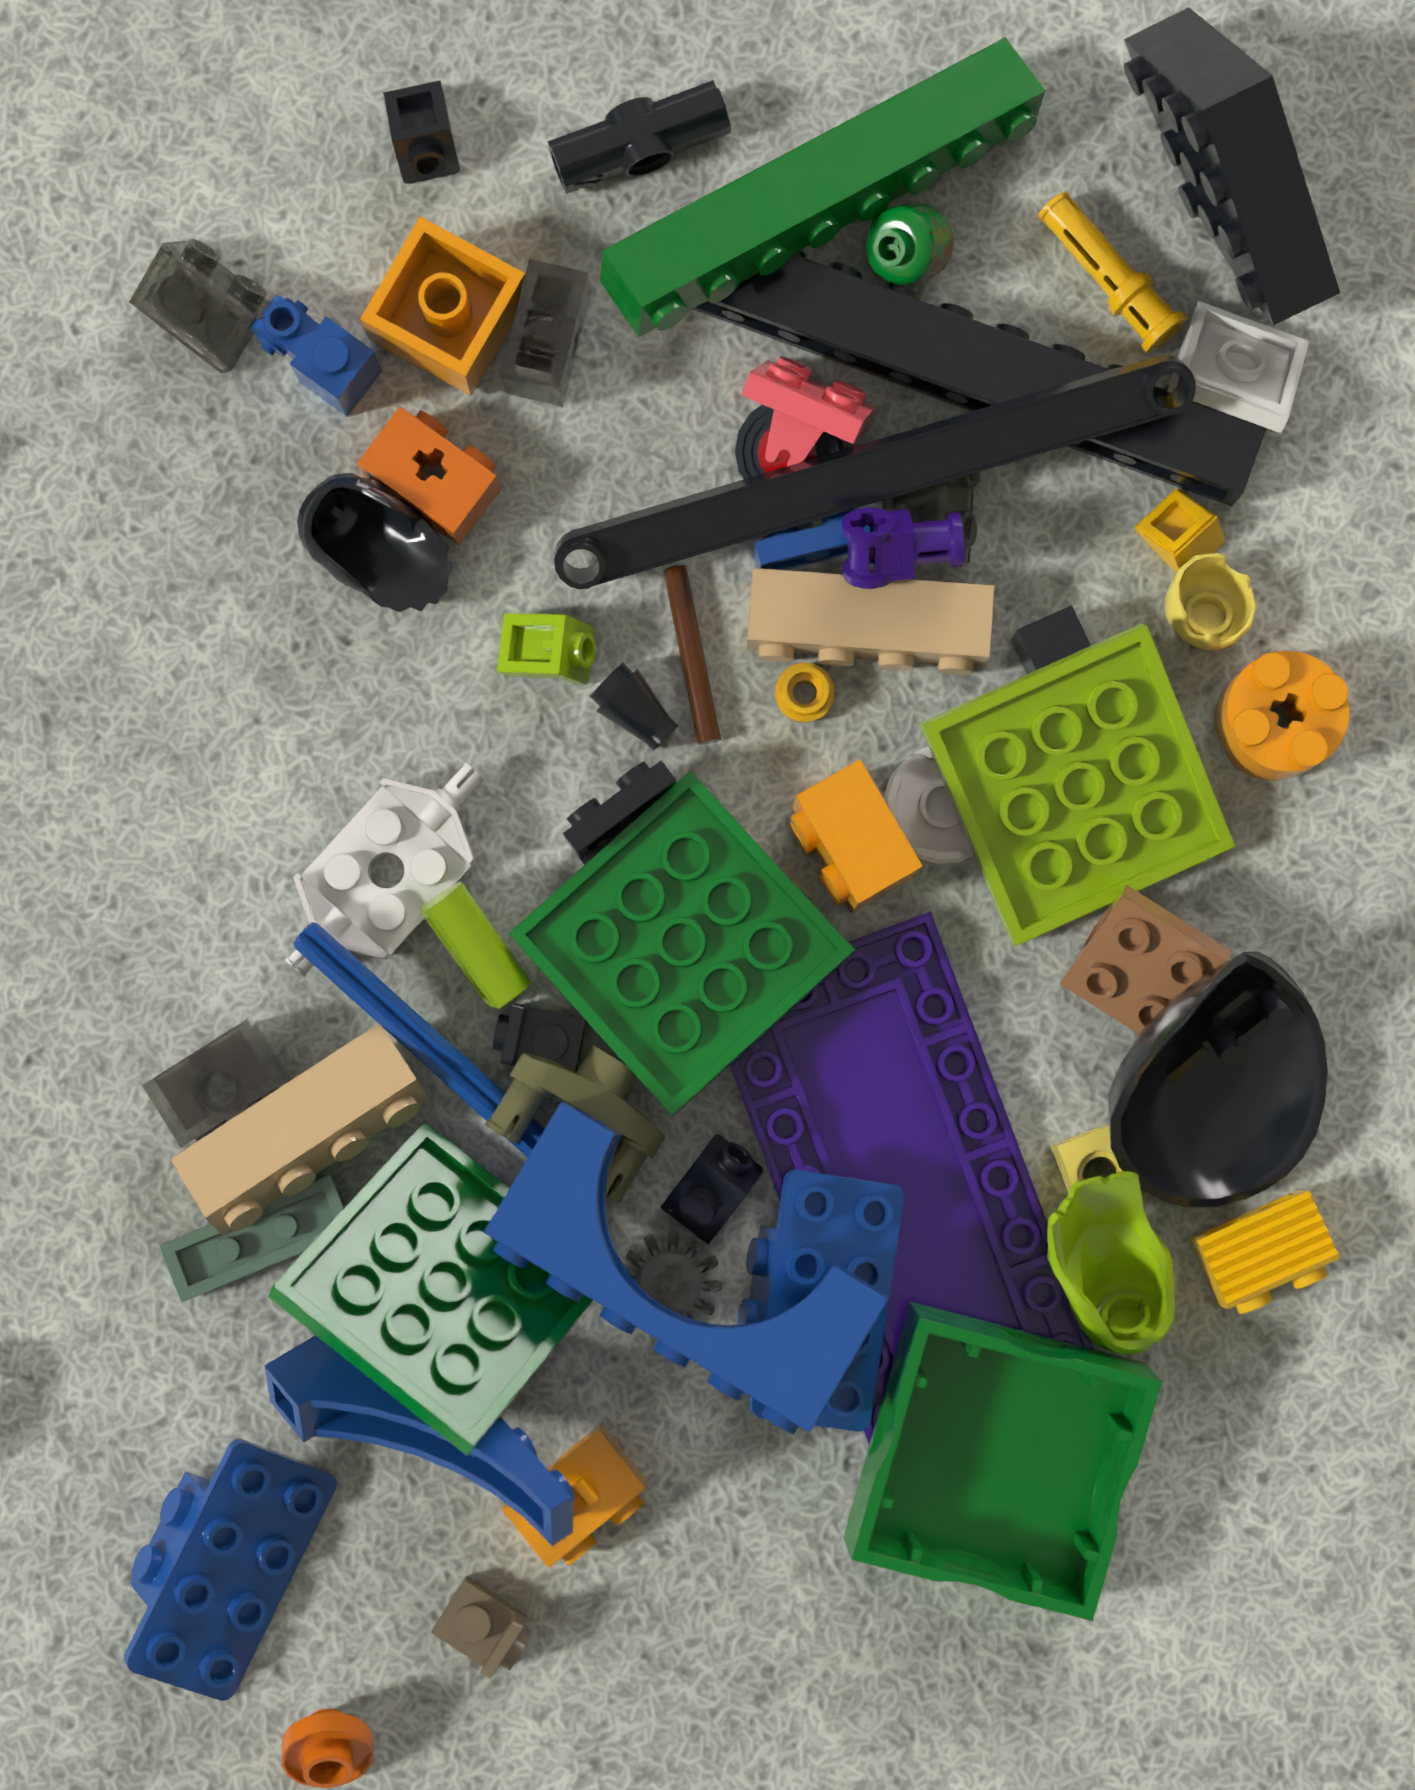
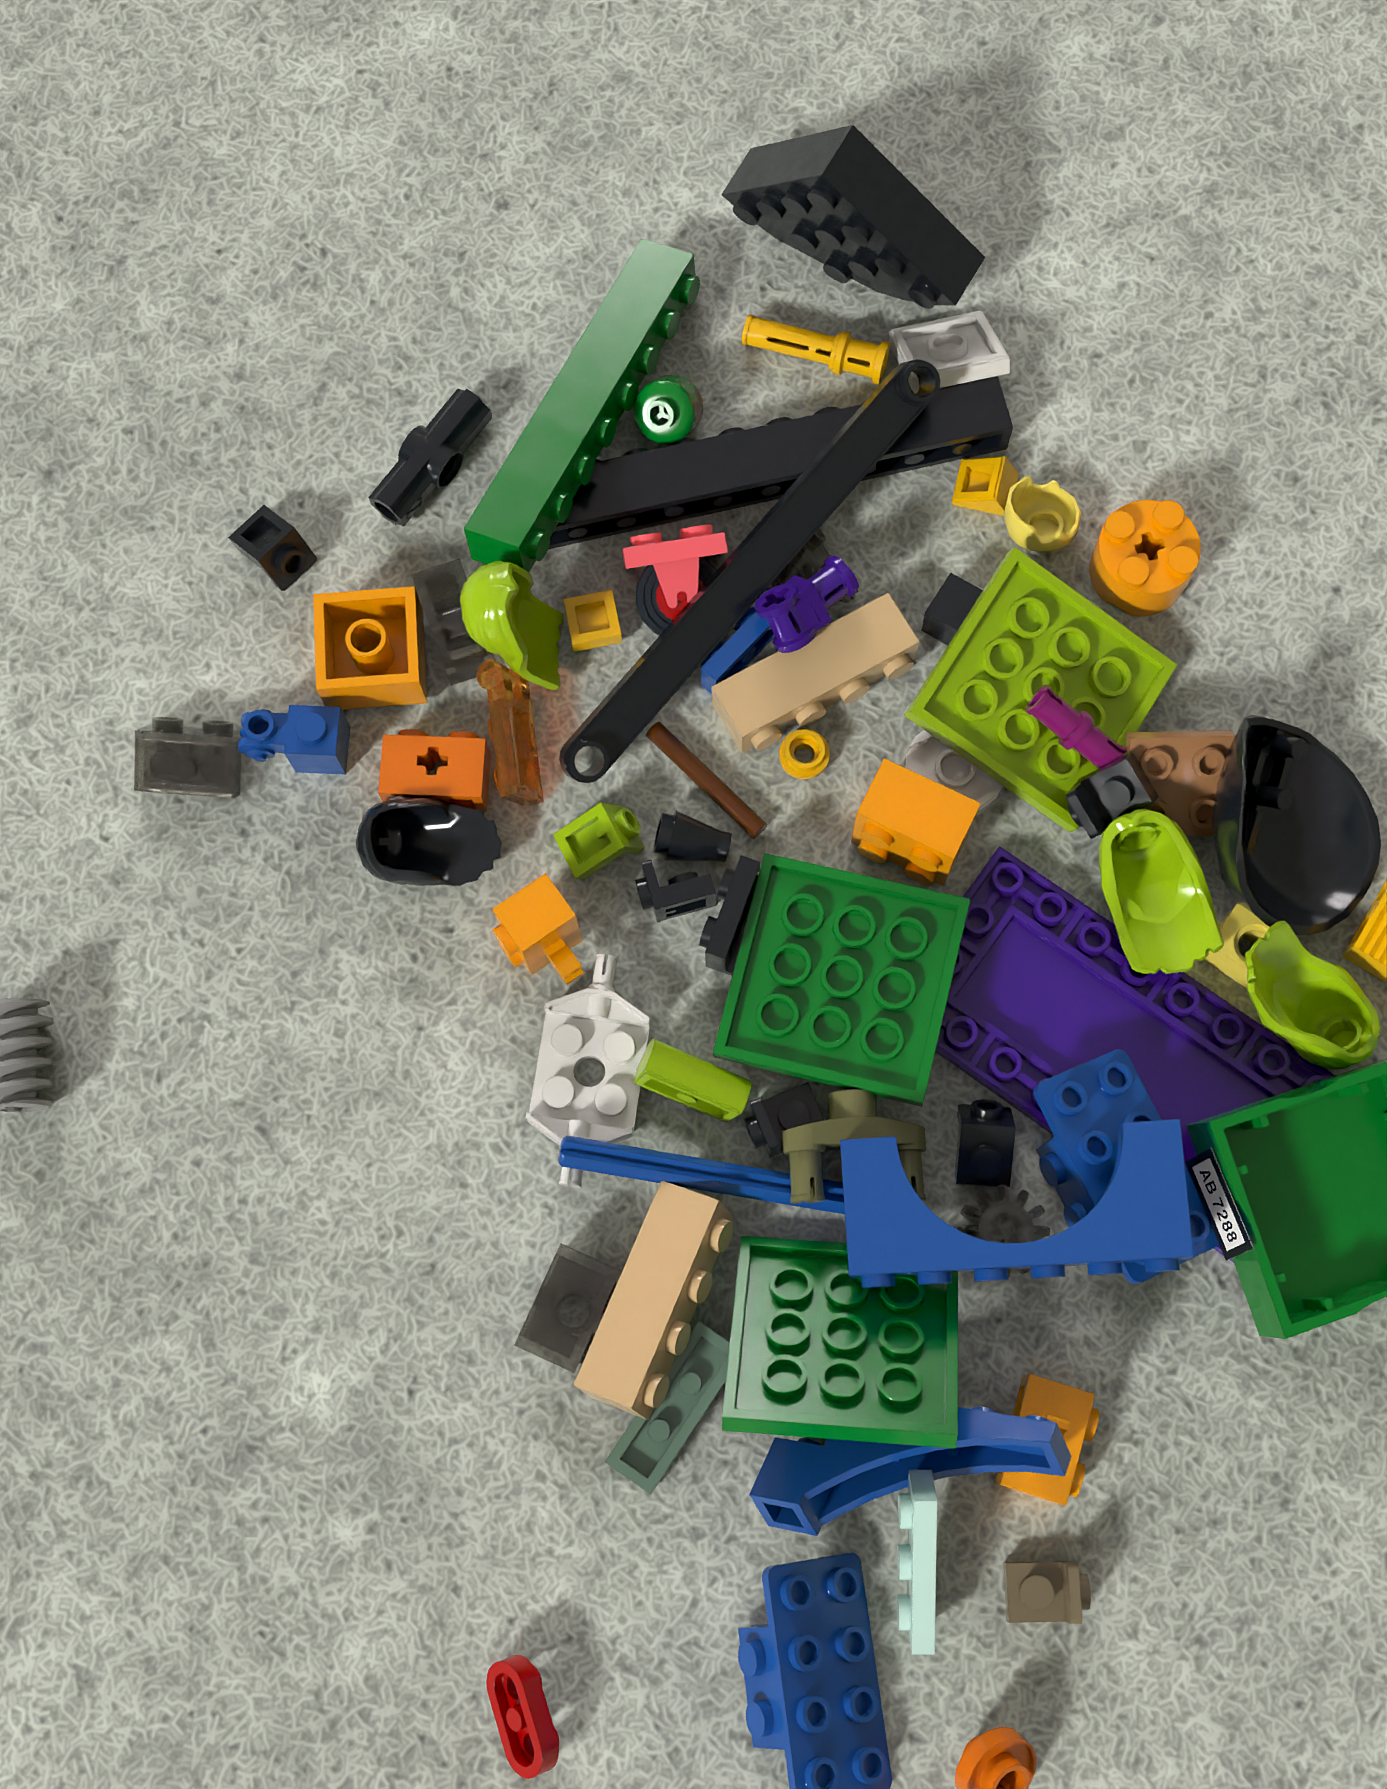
camera: 30 degrees left, 10 degrees down
(376, 1526) = (918, 1562): none -> light aqua plate
(423, 703) = (539, 930): none -> light orange brick
(531, 483) = (512, 733): none -> clear orange plate
(589, 757) = (681, 896): none -> black bracket
(597, 377) = (513, 622): none -> lime hair
(687, 418) = (592, 620): none -> yellow plate
(880, 1397) = (1219, 1204): none -> sticker
(1041, 1063) = (1157, 893): none -> lime hair
(1064, 936) = (1109, 794): none -> black bracket
(1077, 850) = (1073, 728): none -> magenta pin

